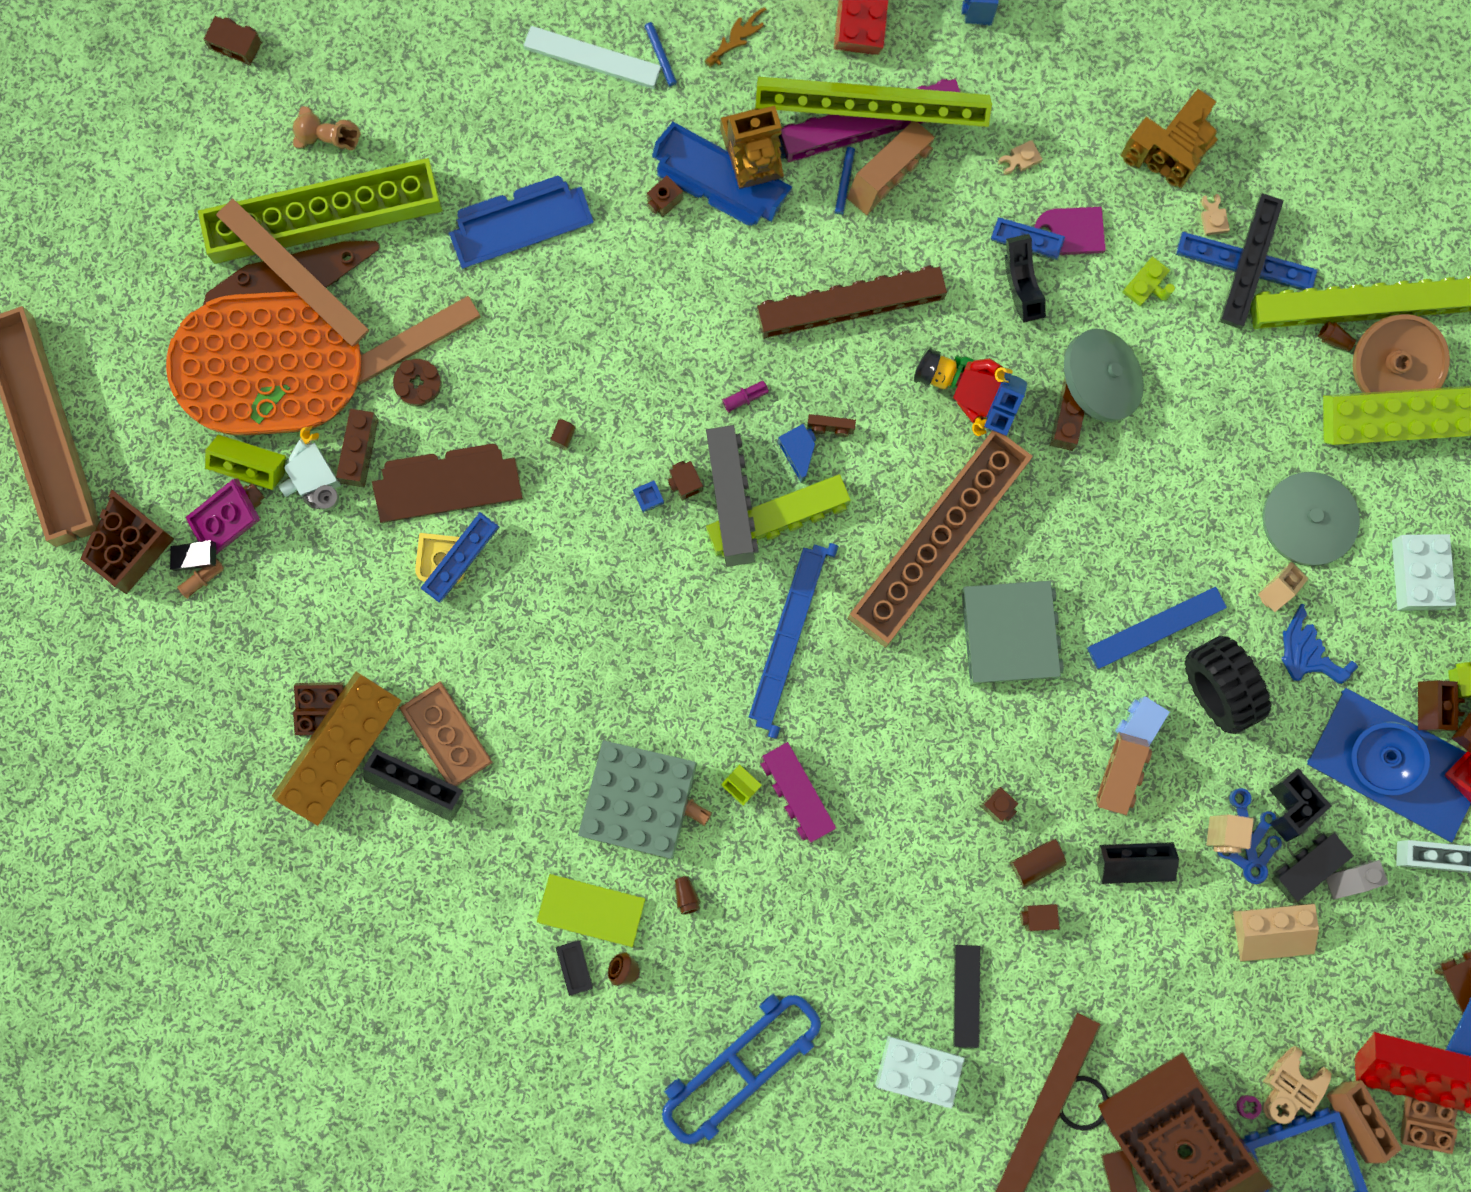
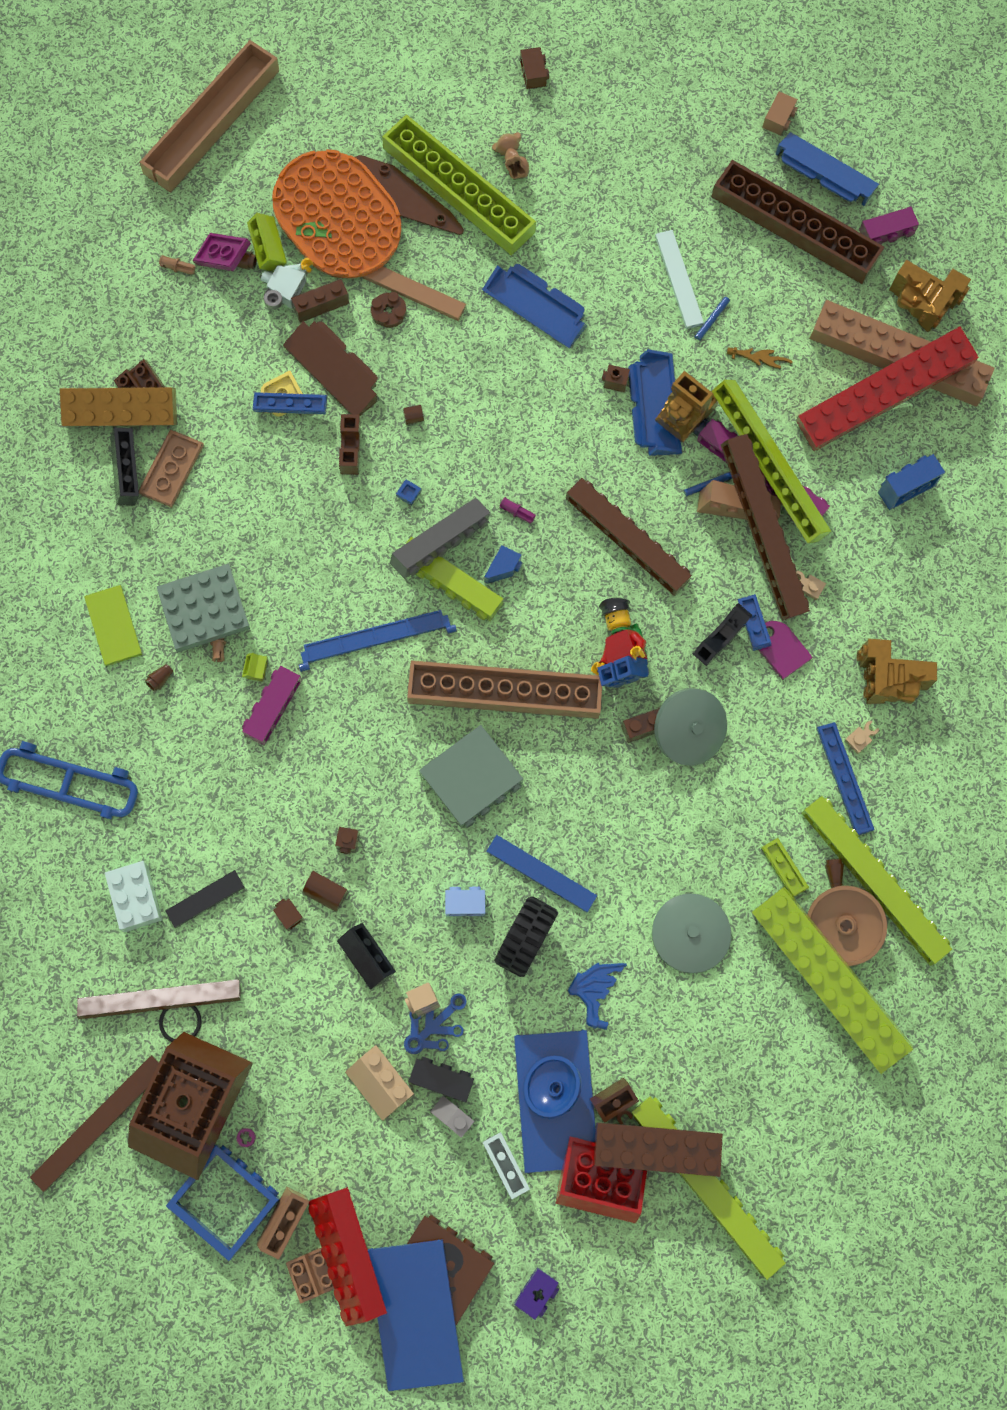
camera: 55 degrees right, 5 degrees down
(124, 544) = (168, 208): reddish brown wedge -> none
(193, 555) = (187, 251): tile -> none
(292, 272) = (404, 191): medium nougat tile -> none
(548, 521) = (350, 444): none -> reddish brown arch
(574, 967) = (69, 638): black tile -> none
(623, 970) = (85, 667): reddish brown cone -> none
(685, 480) = (434, 507): reddish brown brick -> none
(841, 426) = (538, 582): reddish brown plate -> none
(939, 156) = (765, 527): none -> reddish brown brick
(1123, 773) = (421, 907): medium nougat brick -> none
(1148, 282) = (782, 721): lime plate -> none
(1251, 261) = (845, 778): black plate -> none
(1283, 587) = (628, 941): tan slope -> none
(1292, 1089) = (269, 1160): tan piece -> none
(1300, 382) = (784, 867): none -> lime tile
(1301, 803) = (480, 1045): black brick -> none
(1423, 572) = (705, 1033): light aqua brick -> none

